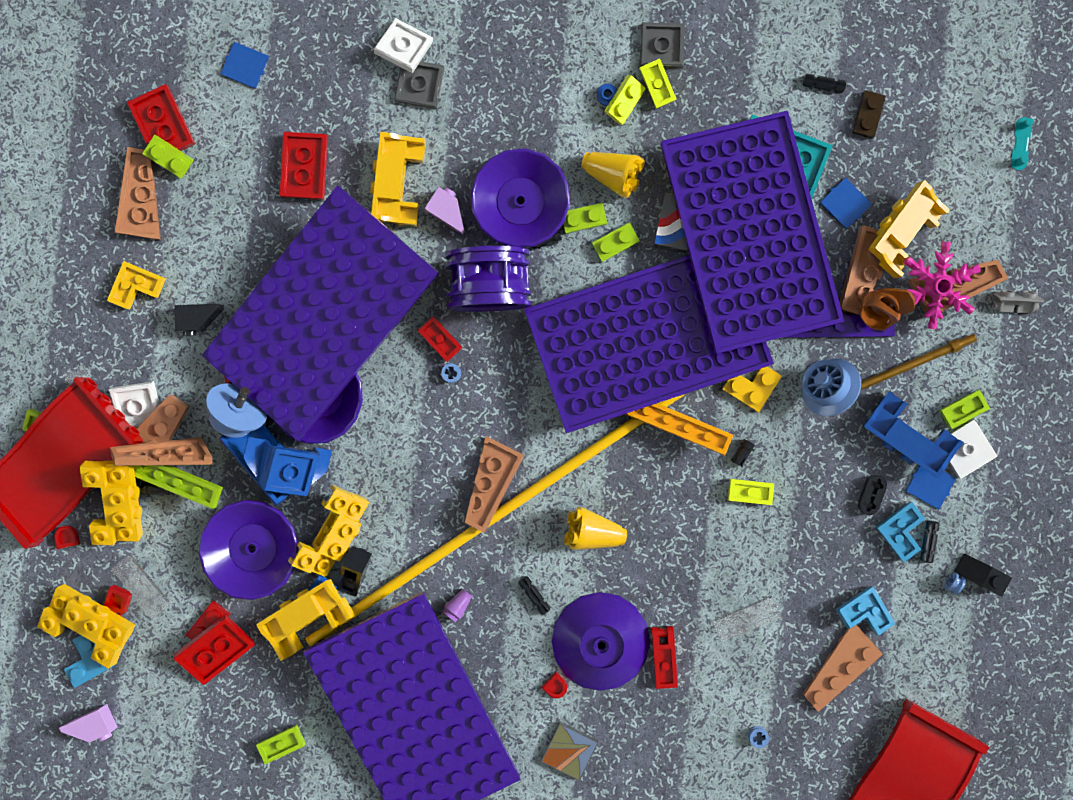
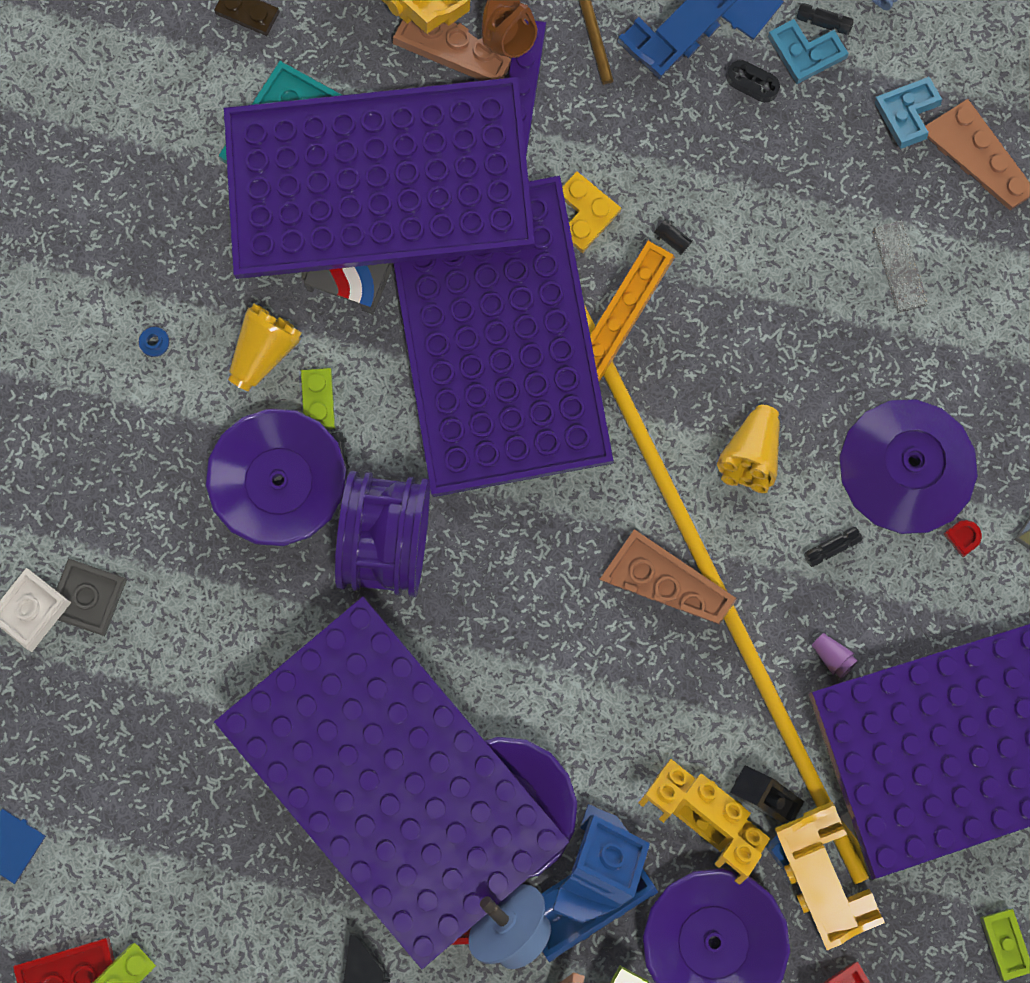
camera: 85 degrees left, 10 degrees down
(303, 165) = (171, 780): red plate -> none
(390, 177) = (210, 655): yellow bracket -> none
(440, 339) = (453, 622): red plate -> none
(446, 209) = (273, 583): lavender slope -> none
(446, 377) = (499, 606): medium blue bush -> none
(615, 242) = (358, 362): lime plate -> none
(625, 99) = (165, 319): neon yellow plate -> none
(657, 83) = (152, 272): neon yellow plate -> none
(662, 42) = (100, 259): dark grey tile -> none
(664, 658) = (940, 382): red plate -> none
(750, 491) = (727, 234): neon yellow plate -> none
(824, 83) = (194, 60): black axle -> none
(830, 386) = (602, 108): medium blue piece -> none
(845, 203) = (359, 57): blue piece -> none

